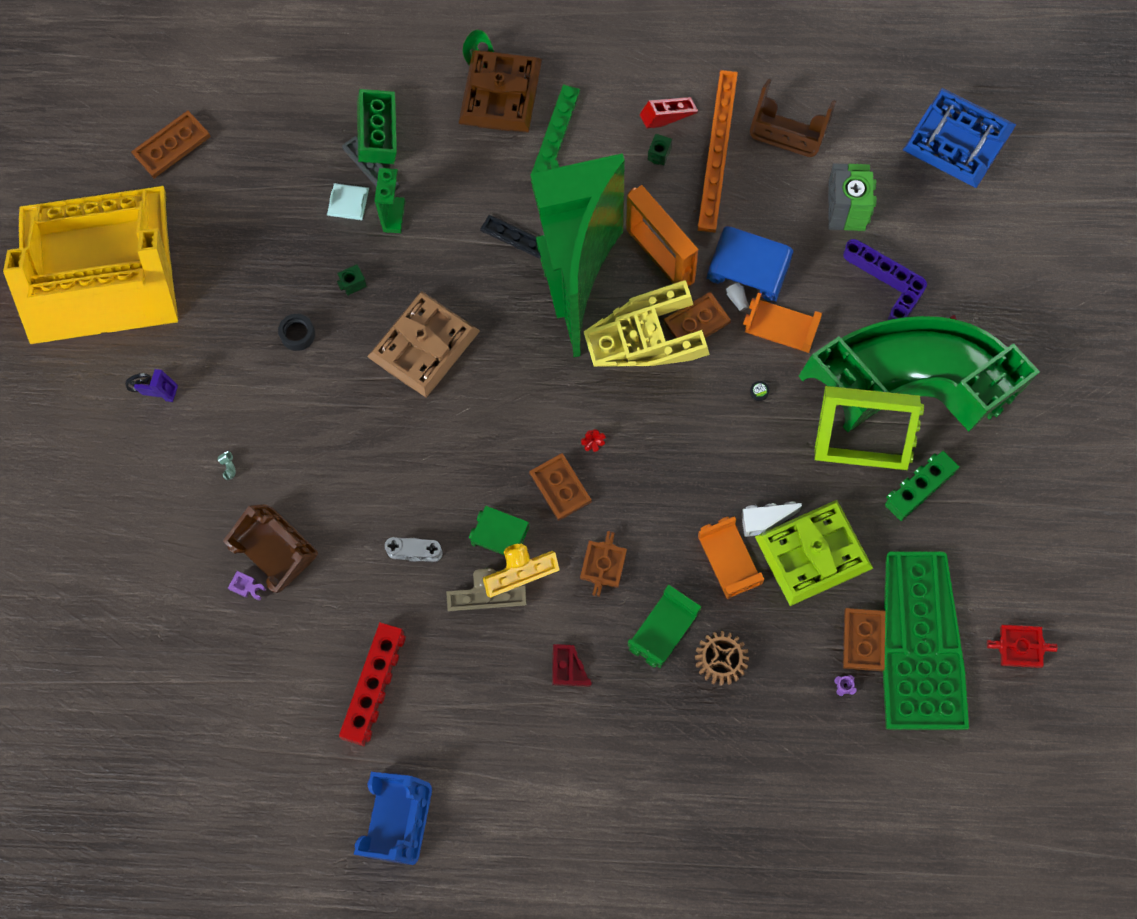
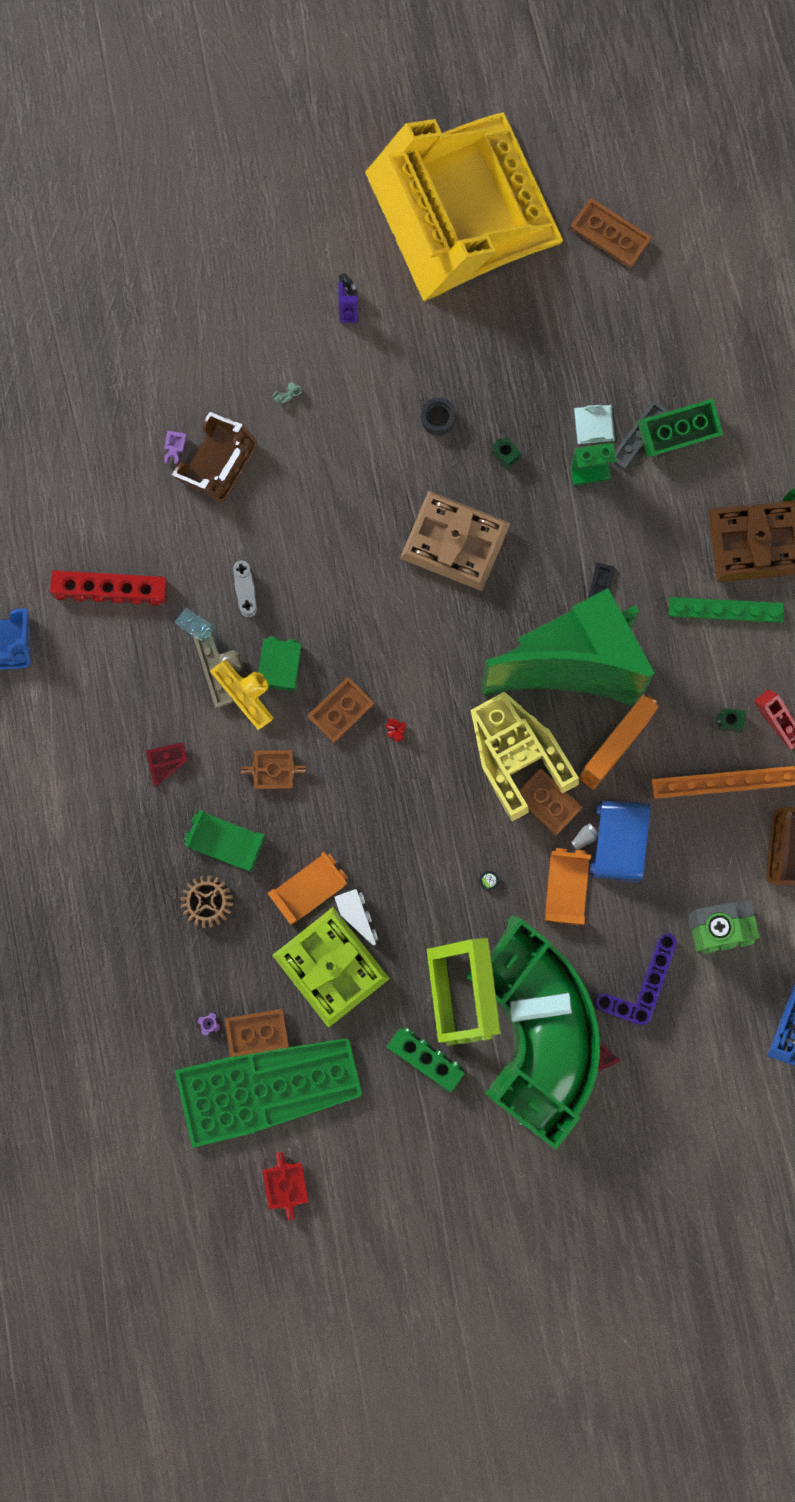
camera: 75 degrees right, 10 degrees up
(436, 606) = (194, 625): none -> clear light blue plate
(898, 360) = (540, 1007): none -> light aqua tile

